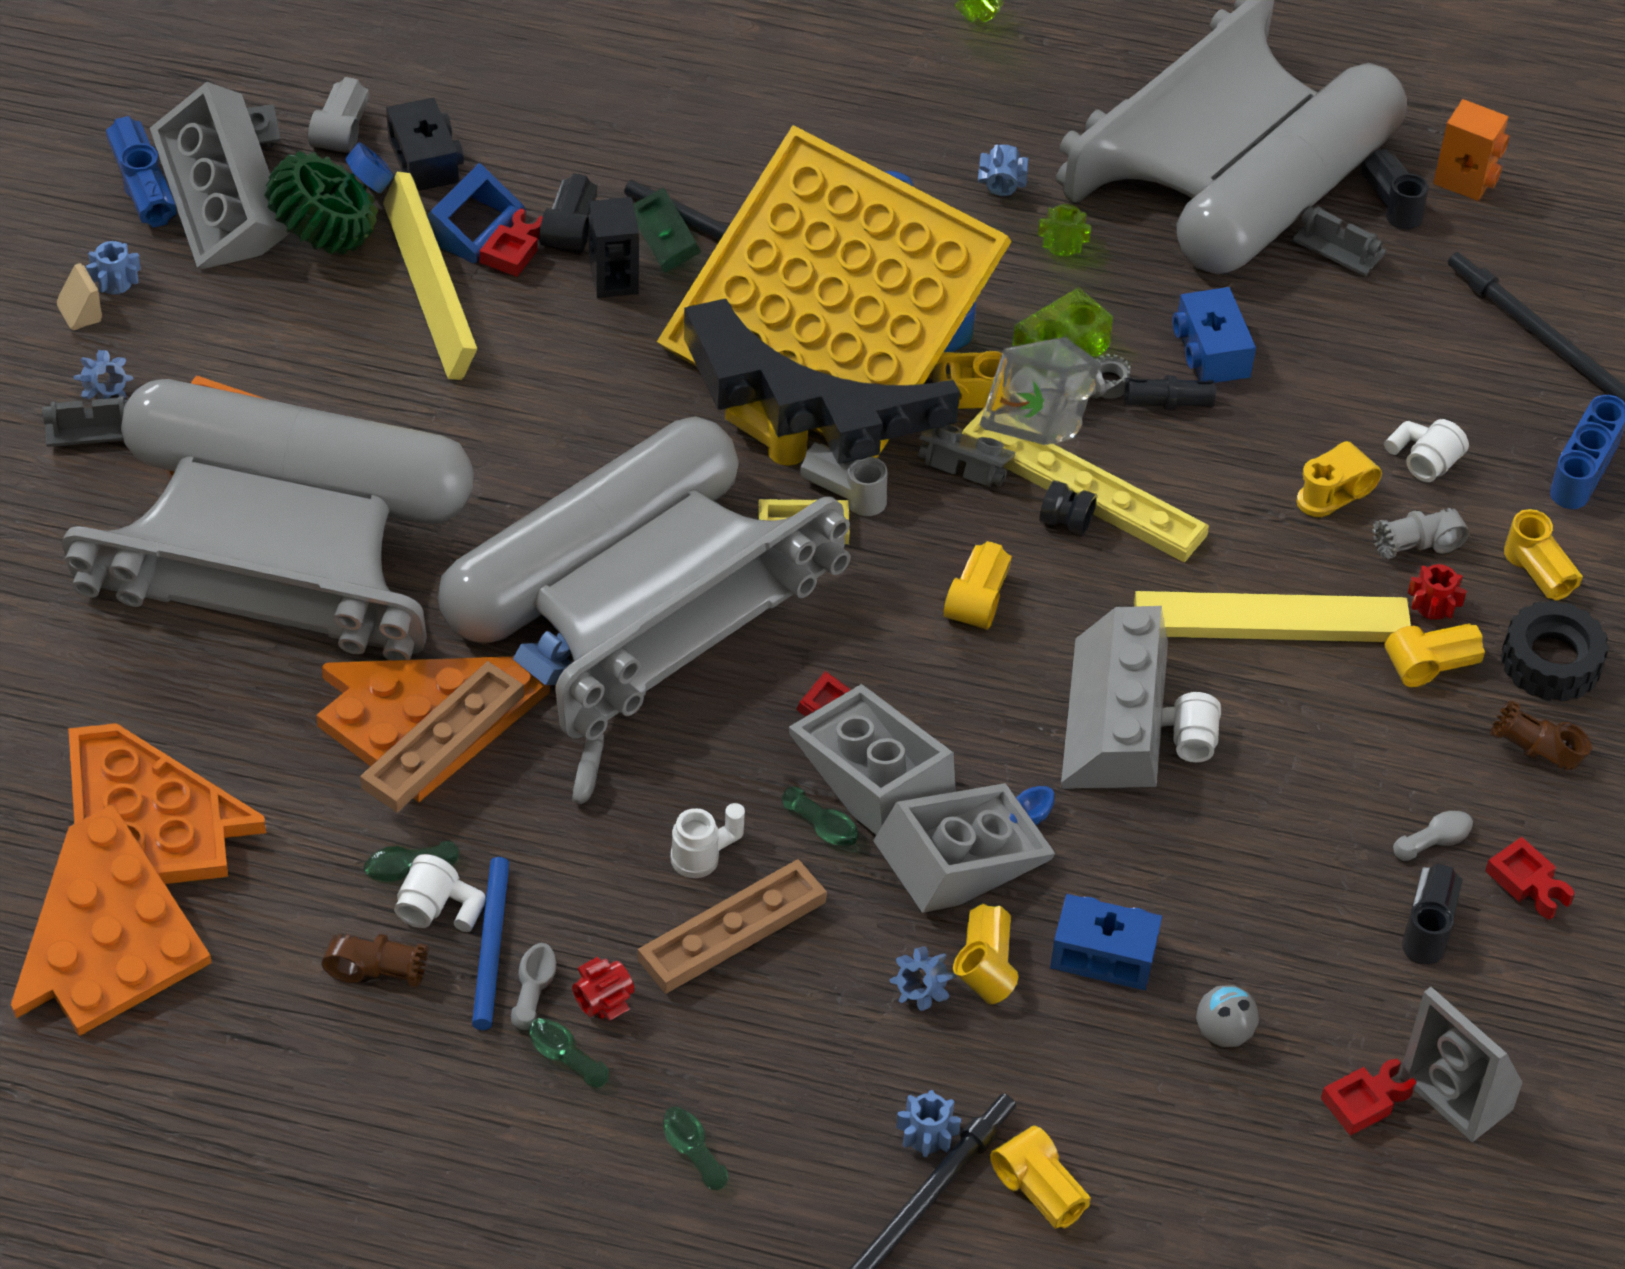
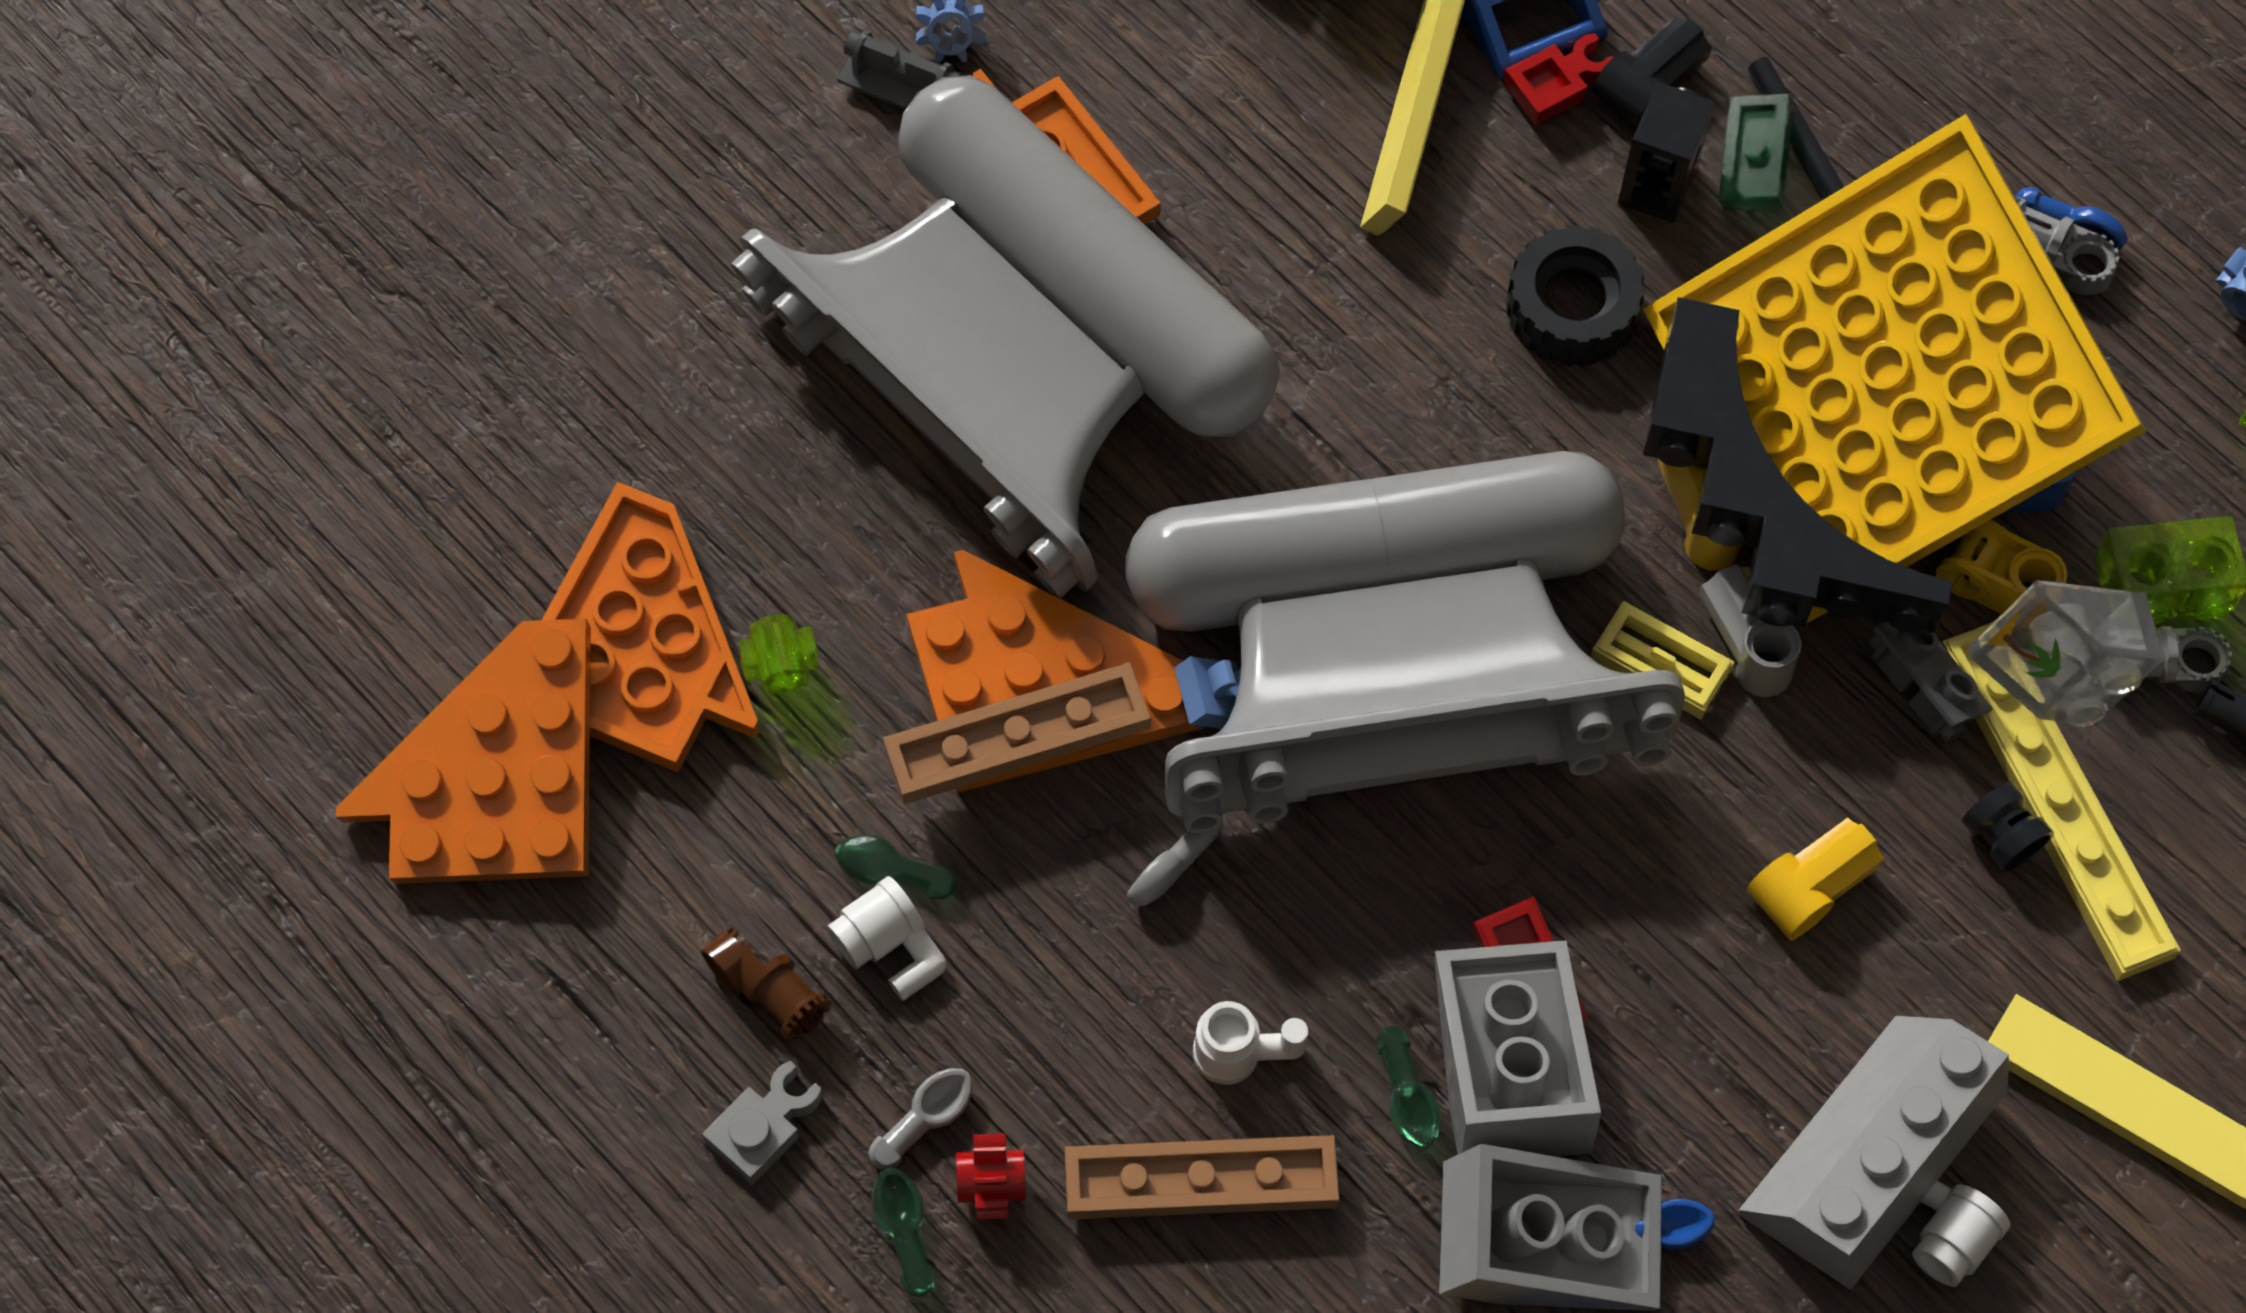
camera: 35 degrees right, 15 degrees up
(250, 772) = (778, 653): none -> clear neon green gear
(430, 1046) = (758, 1129): none -> light grey plate
(490, 944) = (912, 1032): blue bar -> none
(610, 379) = (1582, 252): none -> black tyre

